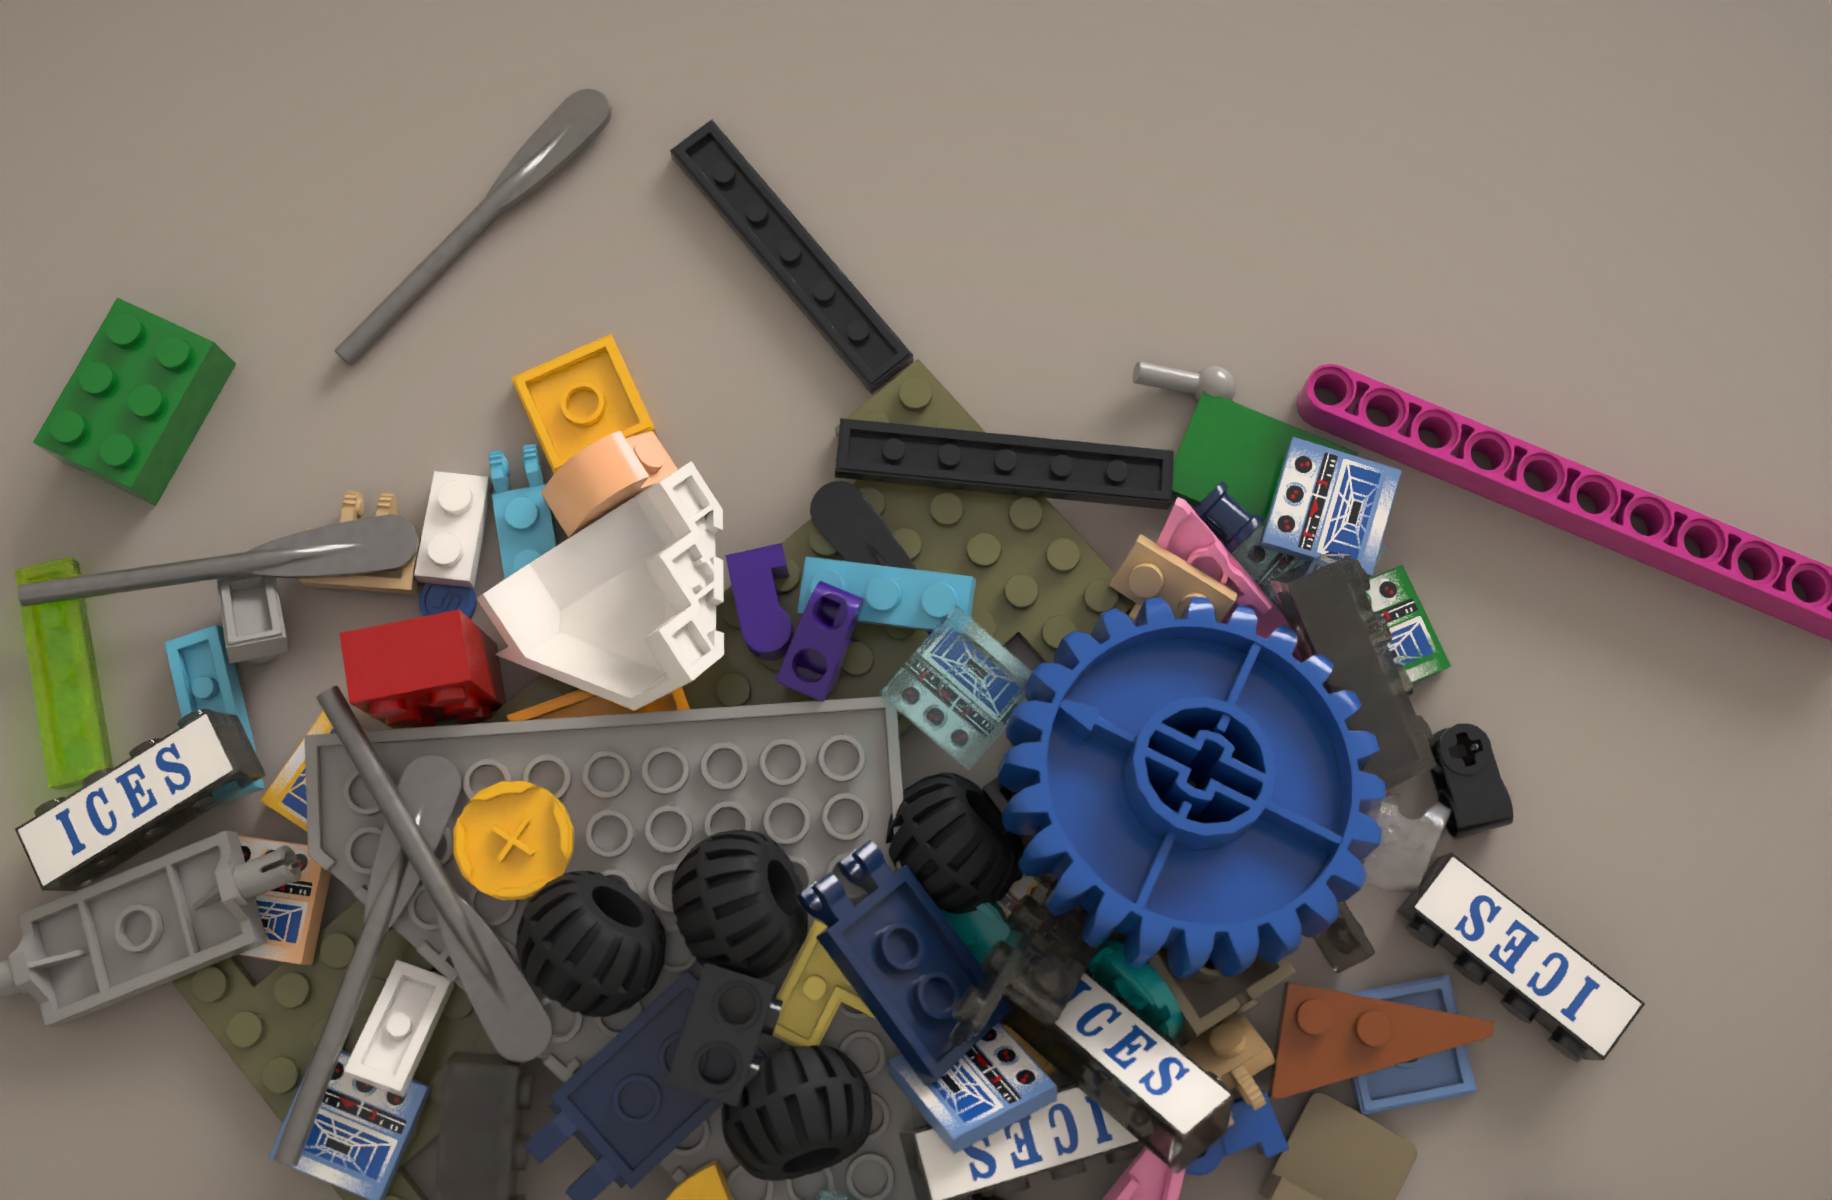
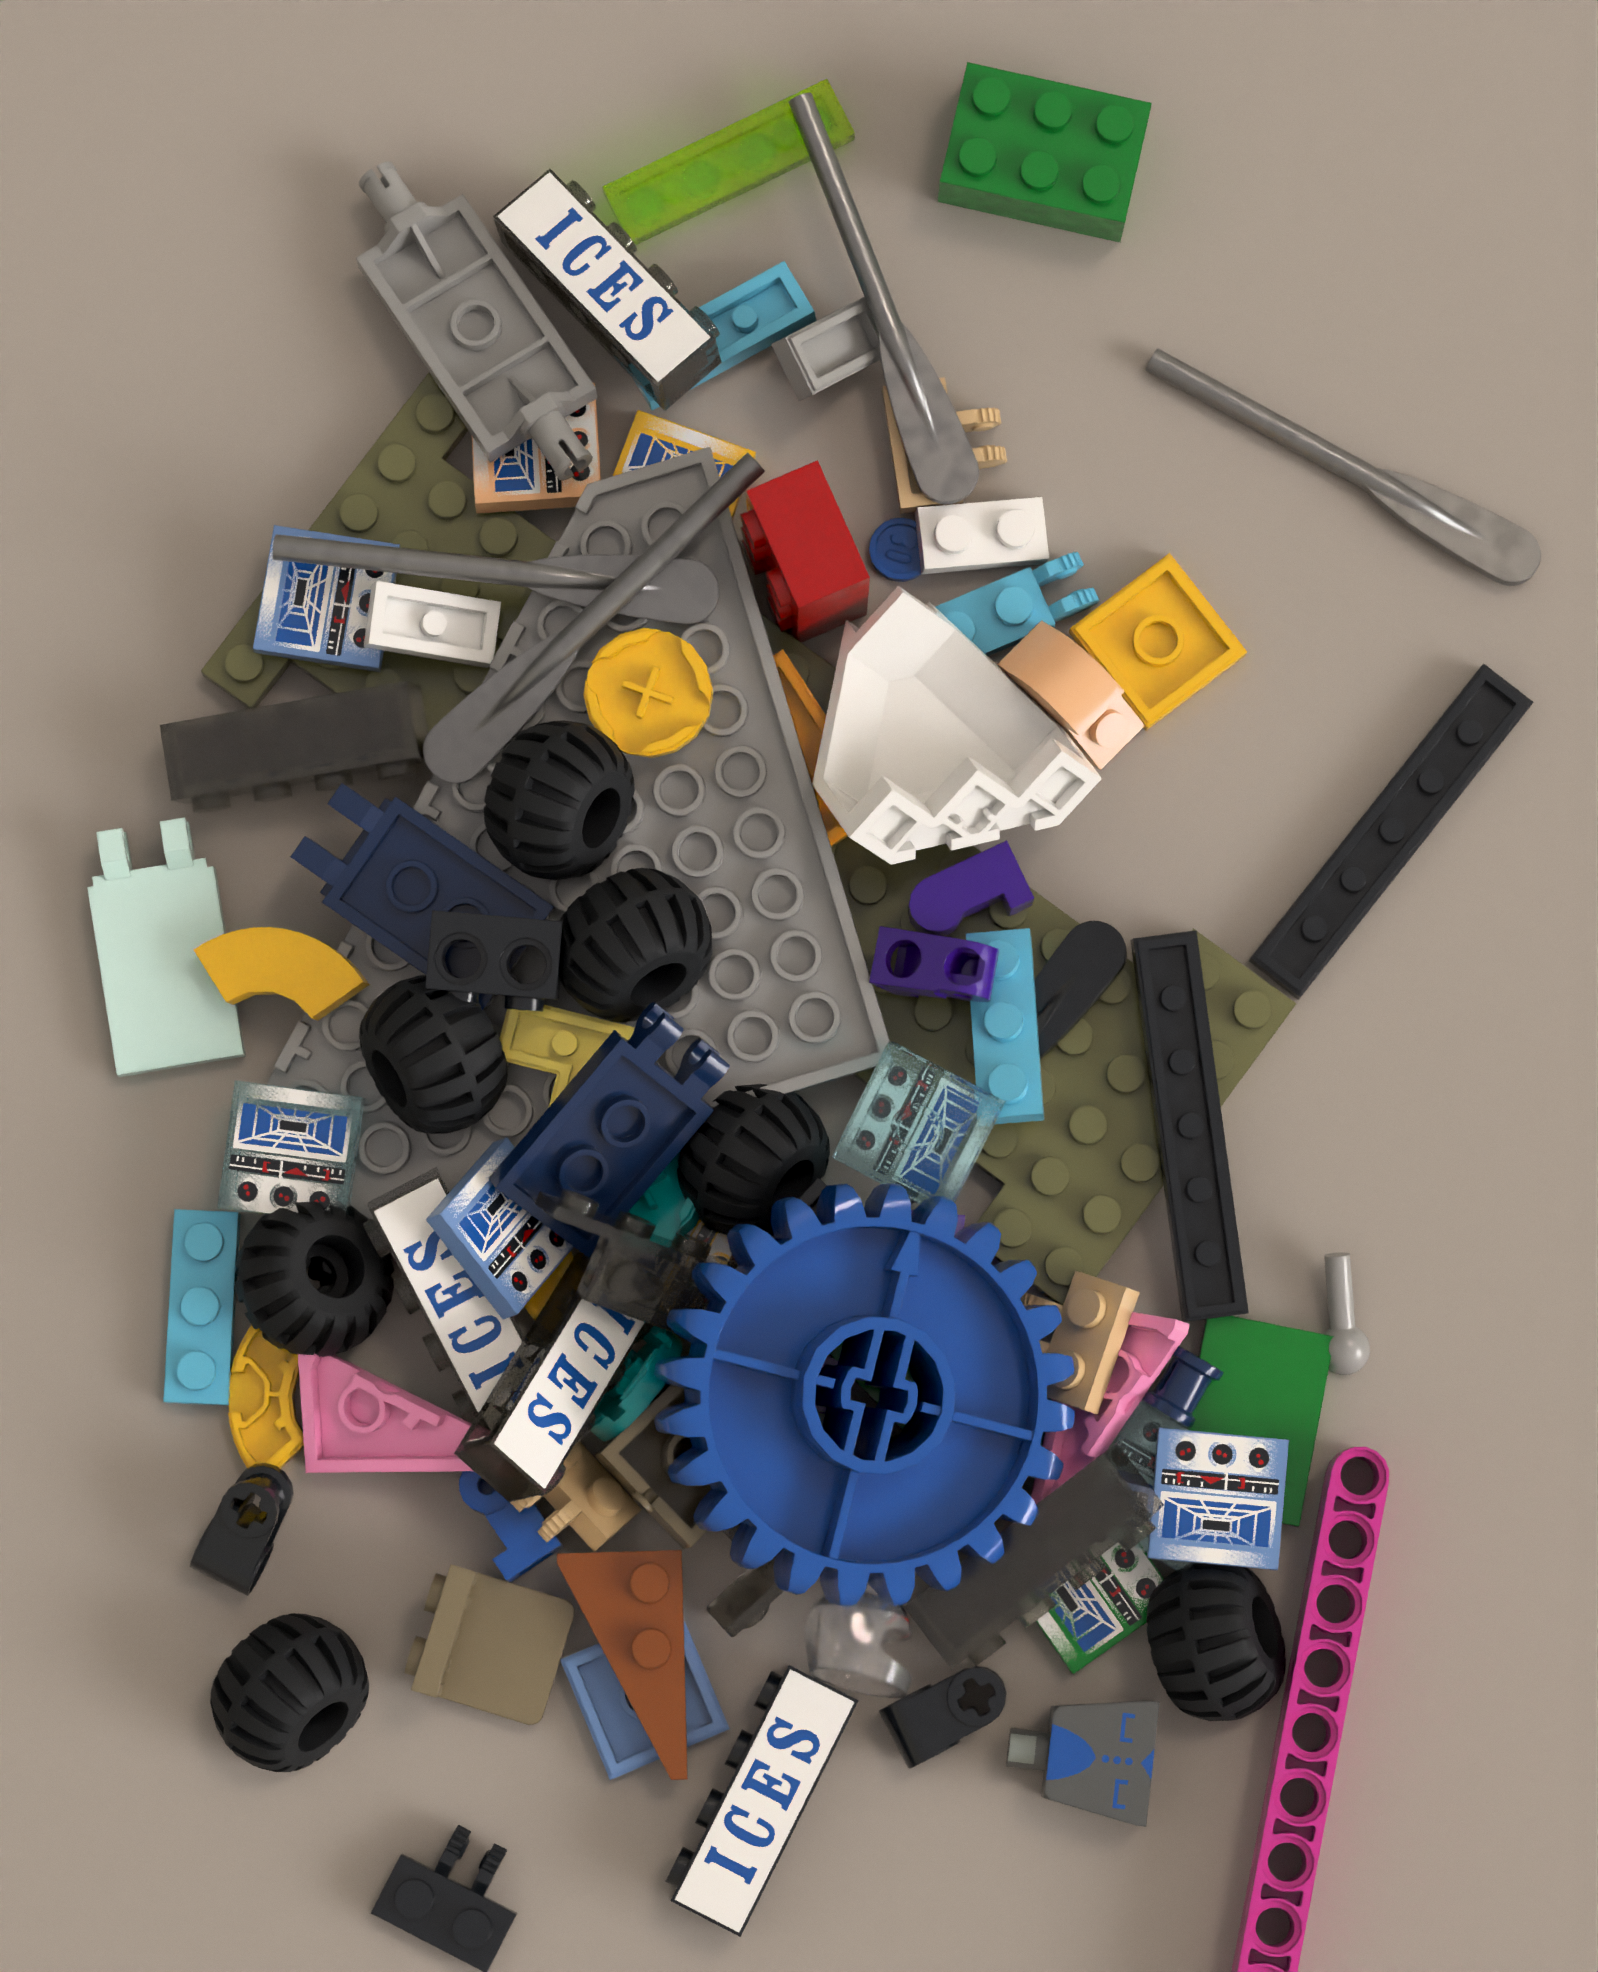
camera: 75 degrees right, 5 degrees up
(1447, 541) = (1216, 1641): none -> black wheel
(1526, 662) = (1093, 1757): none -> dark grey torso

